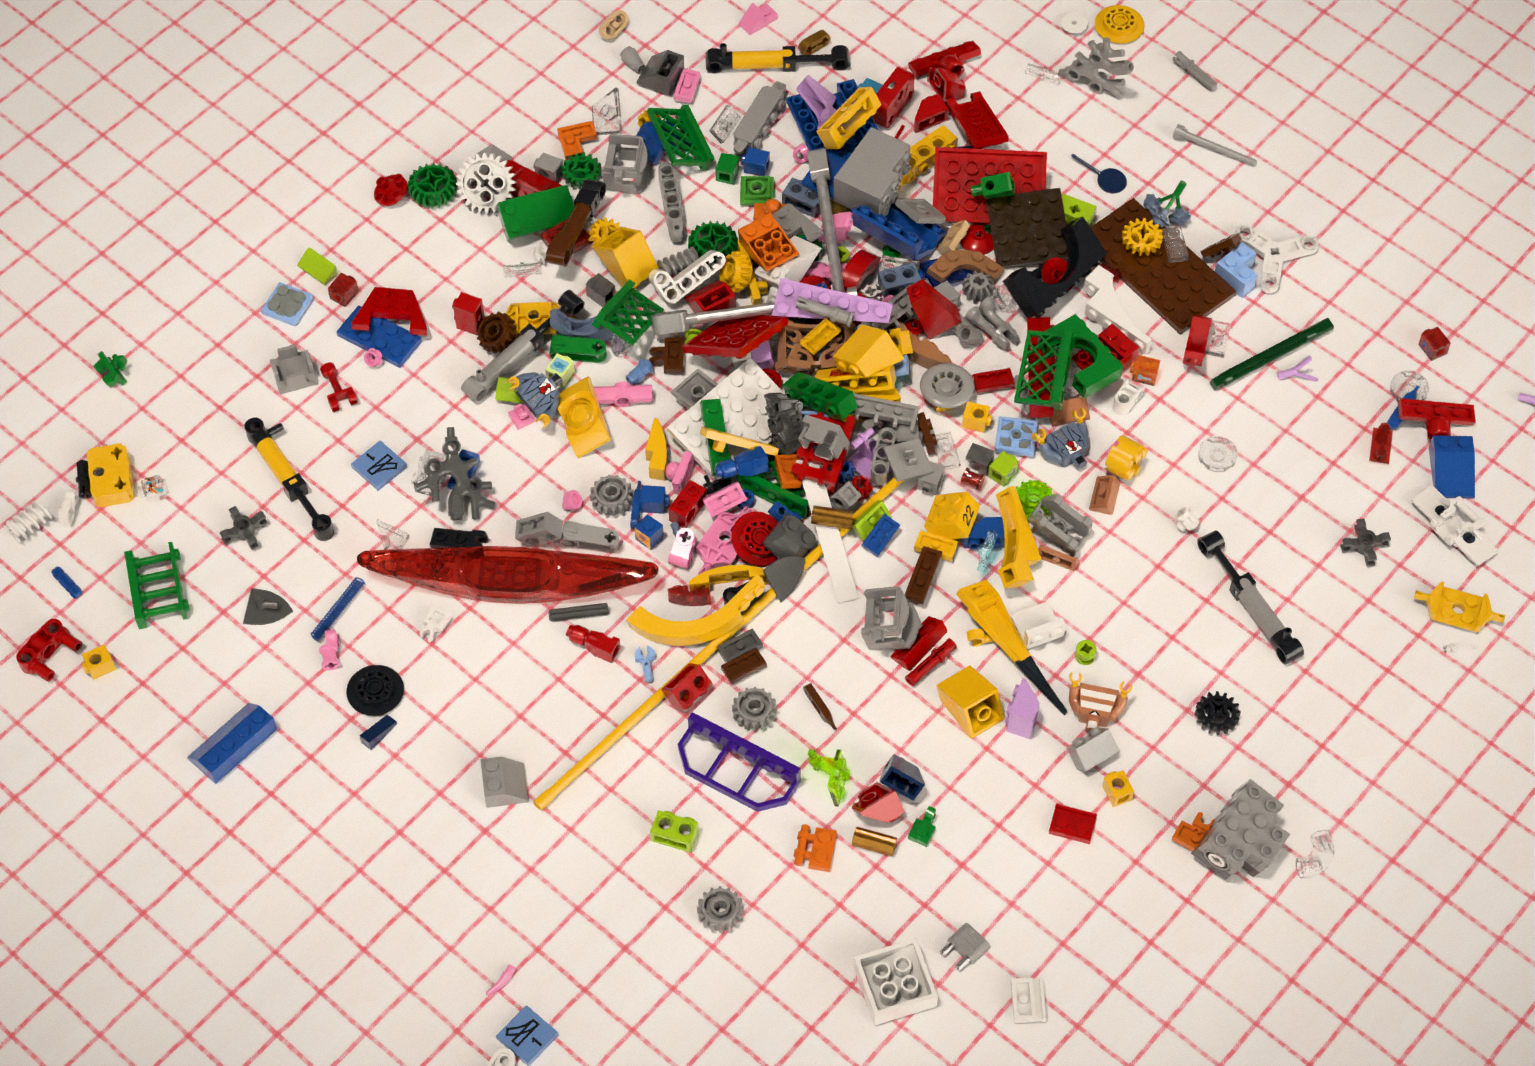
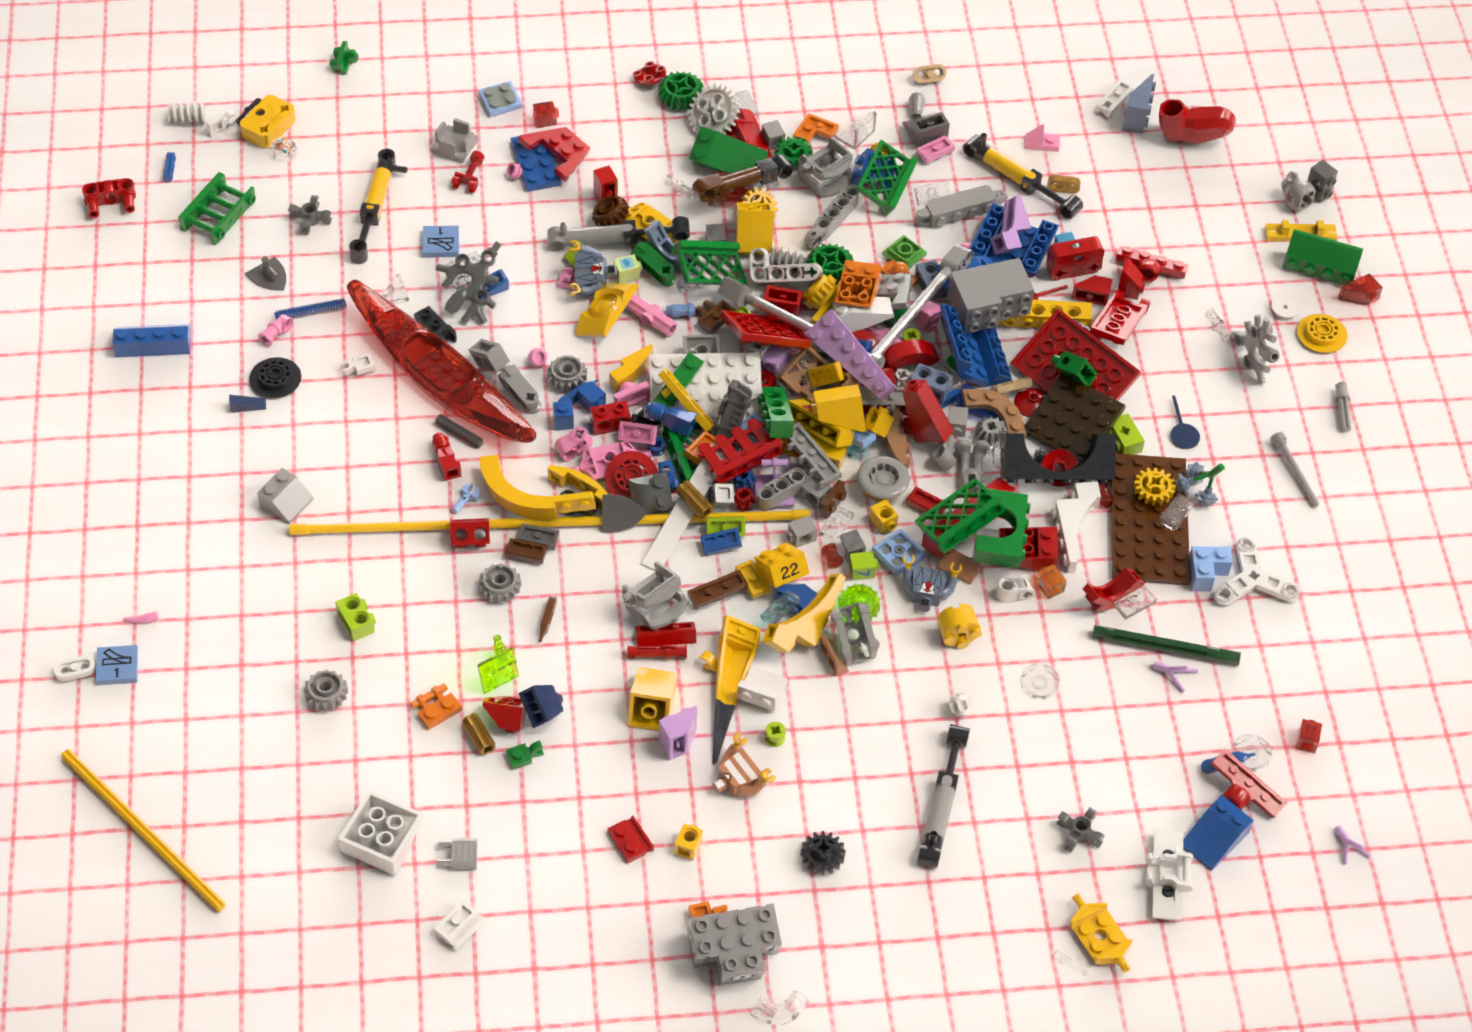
camera: 40 degrees right, 5 degrees down
(103, 667) = (130, 227): yellow brick -> none
(317, 266) = (546, 88): lime slope -> none
(681, 596) = (538, 474): clear red slope -> none
(727, 168) = (899, 222): green brick -> none
(750, 751) = (460, 607): dark purple plate -> none
(756, 162) = (925, 233): blue brick -> none
(828, 435) = (732, 425): light grey panel -> none
(834, 313) = (843, 361): light grey pin -> none
(837, 135) = (1042, 244): yellow brick -> none
(908, 460) = (793, 503): light grey piece -> none
(920, 211) = (1001, 346): light grey plate -> none
(1093, 748) = (700, 799): piece -> none
(1105, 494) = (920, 643): nougat slope -> none
(1224, 245) = (1214, 539): reddish brown hinge -> none
(1381, 444) = (1178, 773): clear red hinge -> none

